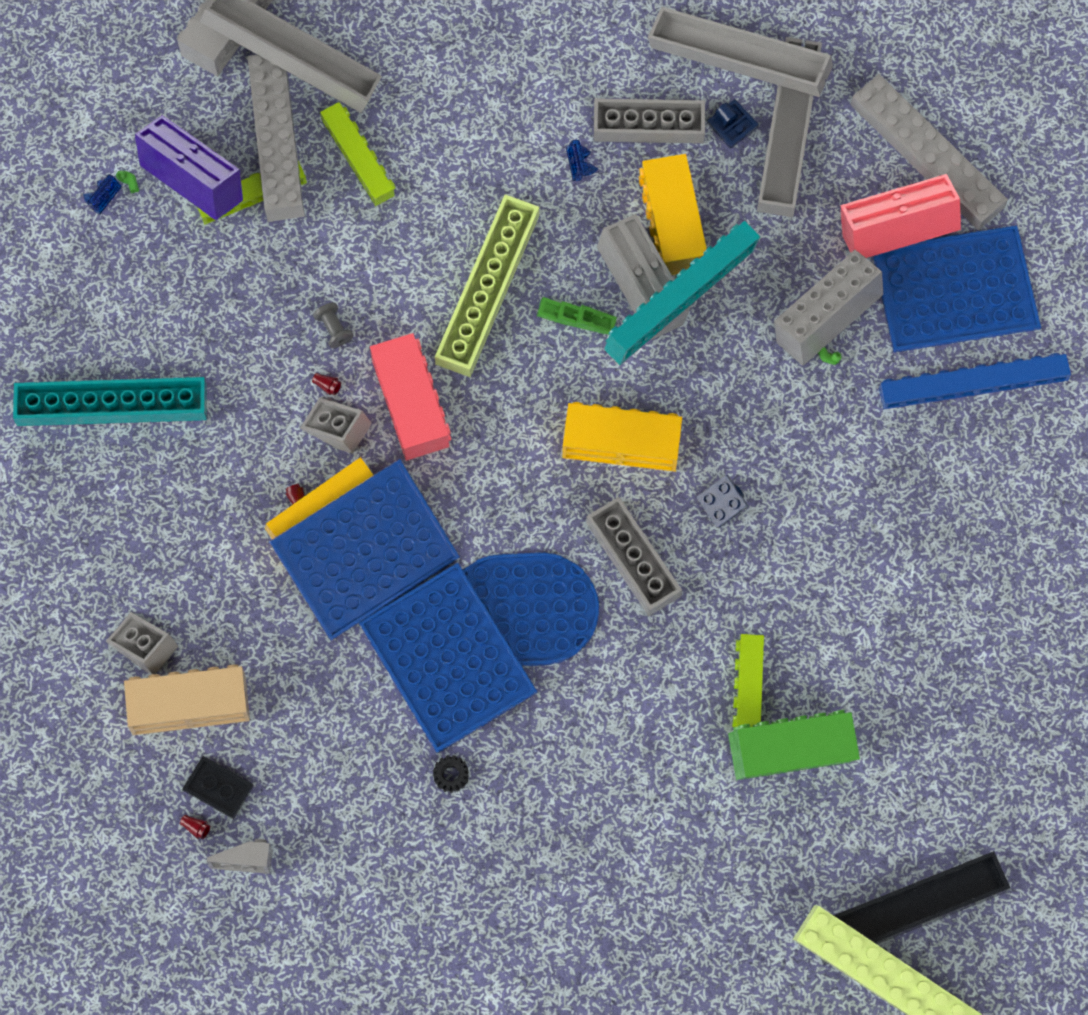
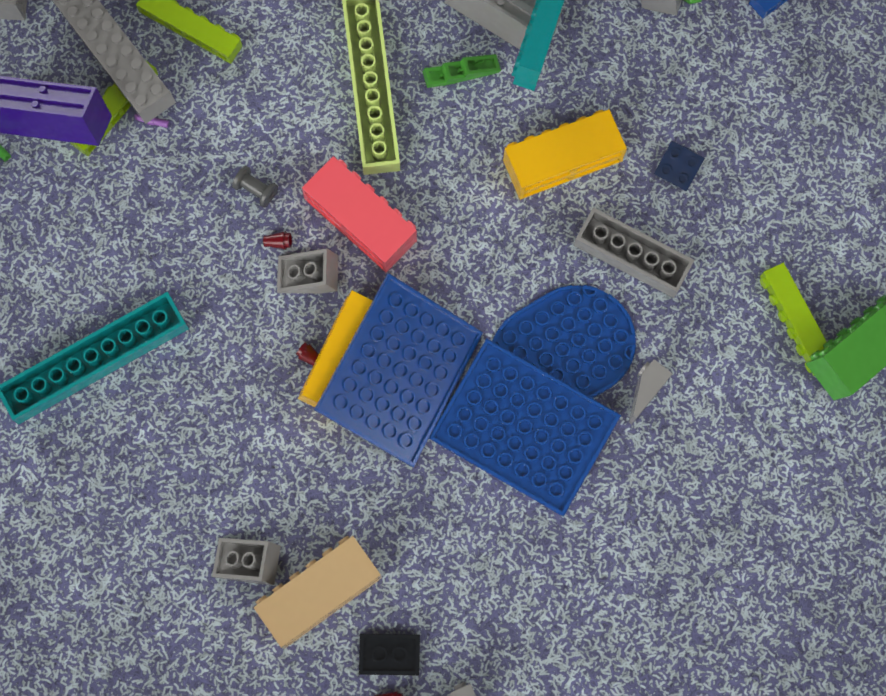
camera: 30 degrees left, 5 degrees up
(283, 226) = (156, 121): none -> medium lavender piece
(448, 762) = (598, 524): black tyre -> none
(577, 678) = (651, 380): none -> light grey slope

